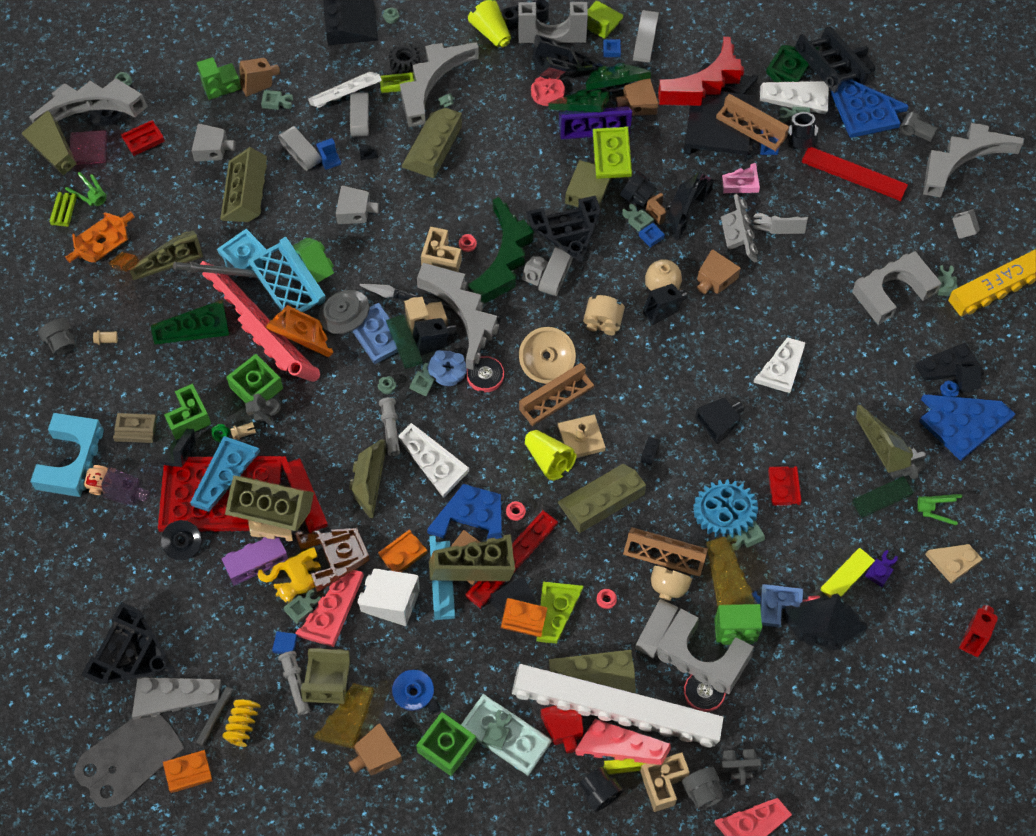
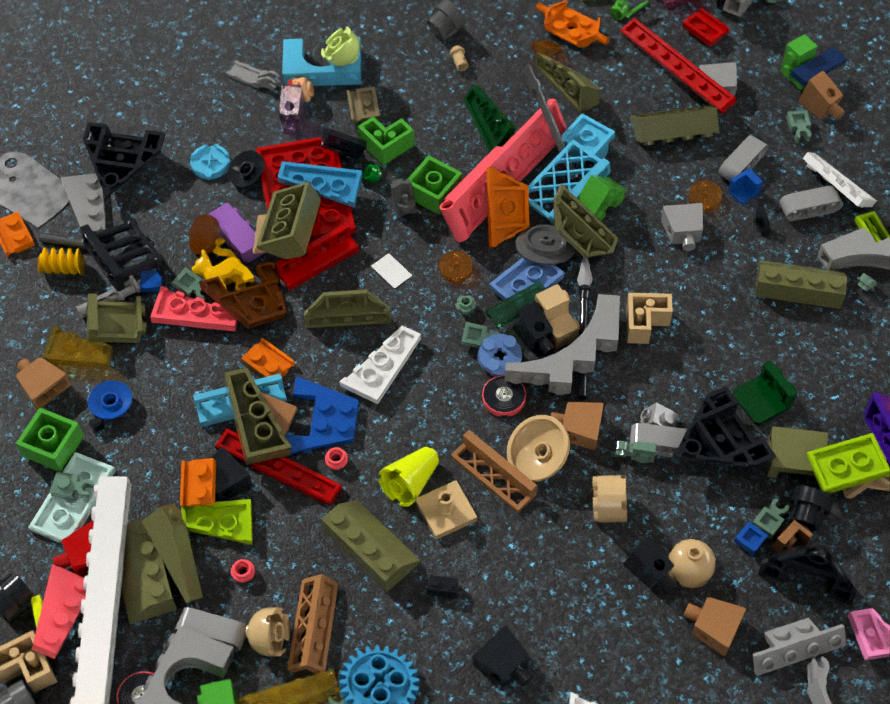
camera: 80 degrees right, 5 degrees down
(59, 521) = (253, 76): none -> light grey arm
(73, 424) = (342, 48): none -> yellowish green cylinder
(155, 575) = (210, 162): none -> medium azure tile
(182, 167) = (678, 66): none -> red tile
(228, 66) = (824, 62): none -> dark blue tile
(241, 431) = (376, 187): tan pin -> none
(251, 585) = (204, 234): none -> reddish brown tile
(262, 674) = (108, 263): none -> black fence
(323, 179) = (708, 188): none -> clear orange piece
(331, 438) = (391, 270): none -> white sticker
(340, 276) = (581, 226): none -> olive wedge
(343, 393) = (458, 274): none -> clear orange piece
(389, 419) = (424, 314): light grey pin -> none
(390, 595) = (209, 356): white slope -> none
(467, 238) = (673, 339): coral plate -> none
(500, 275) = (667, 388): dark green arch -> none
(527, 319) = (582, 423): none -> medium nougat torso
(531, 191) = (766, 394): none -> dark green bracket
(563, 287) = (638, 451): none -> sand green plate
(570, 644) = (173, 544): none -> olive wedge

